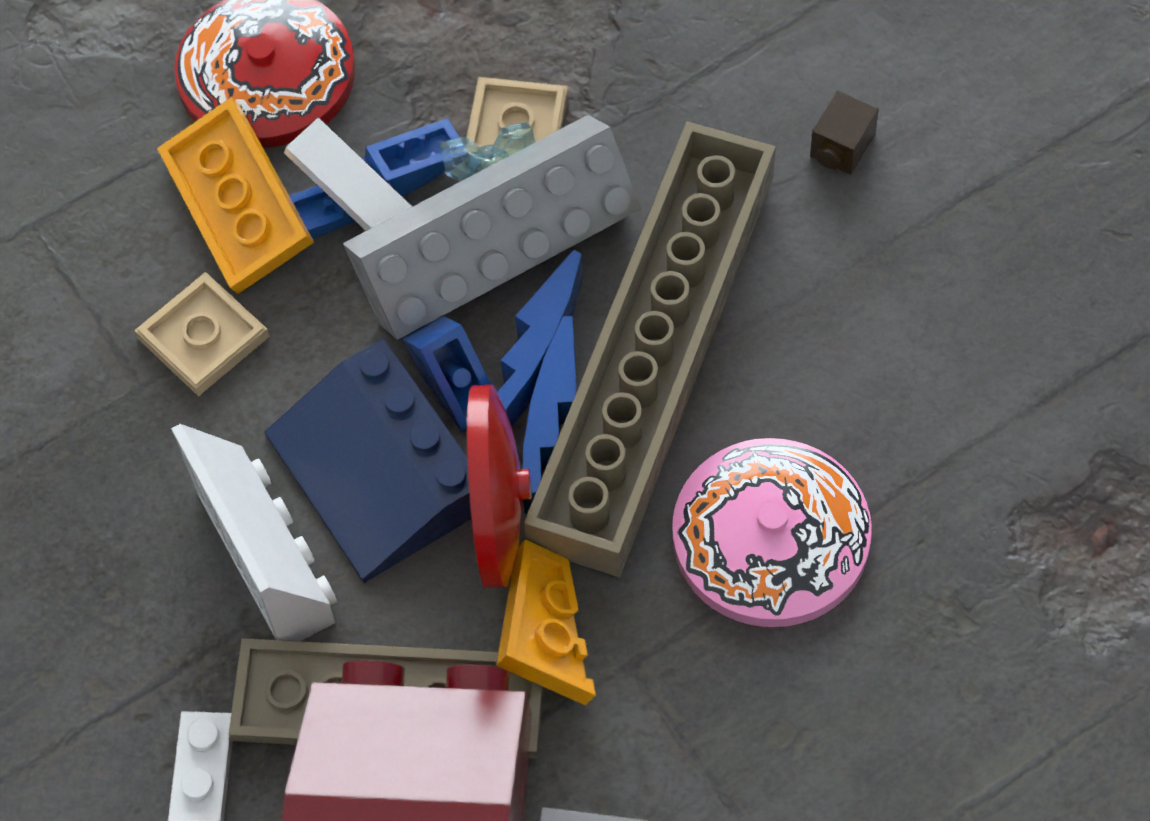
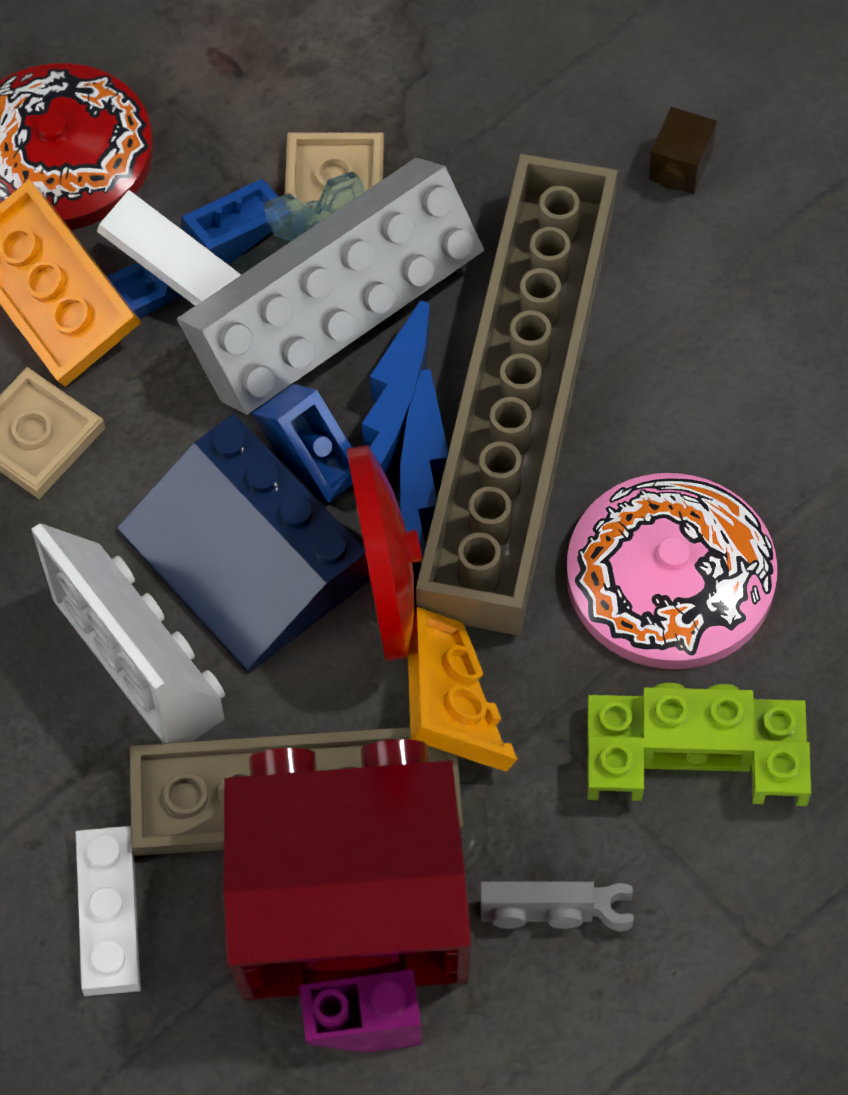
camera: 10 degrees left, 0 degrees up
(768, 689) = (697, 731): none -> lime bracket

